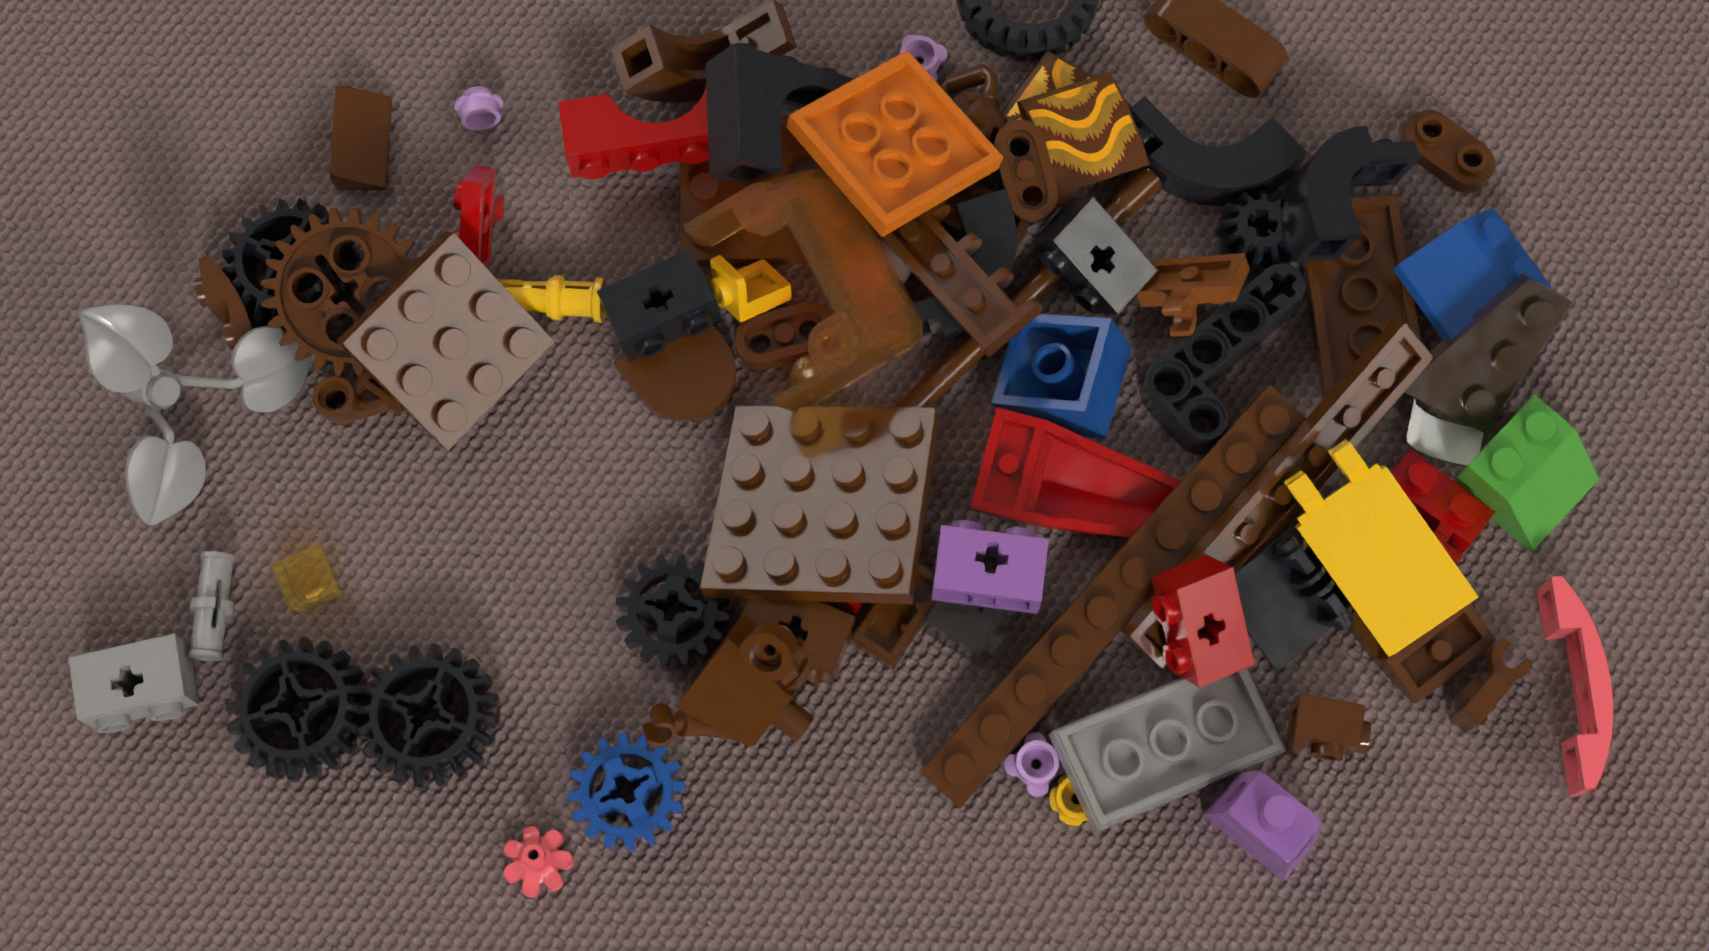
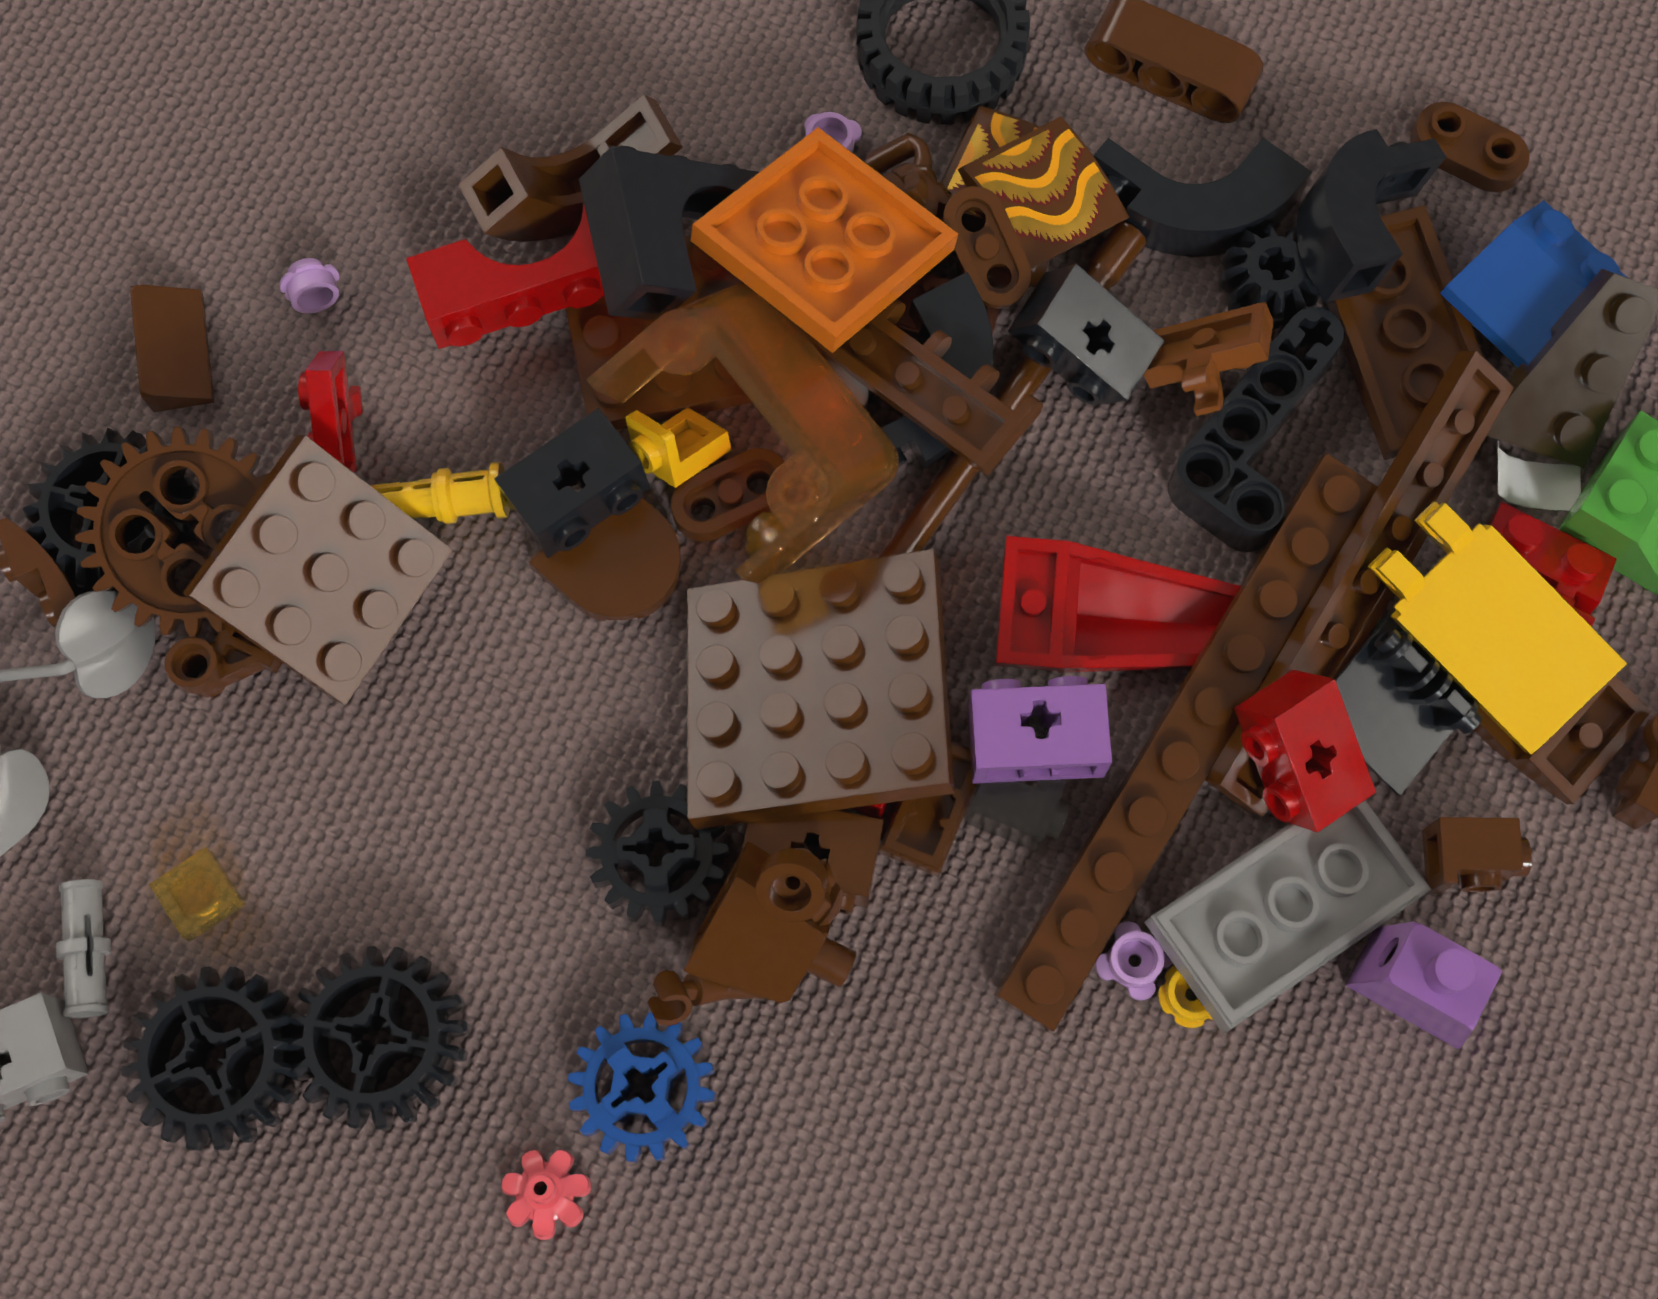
camera: 10 degrees left, 0 degrees up
(1065, 372) = (1077, 480): blue slope -> none

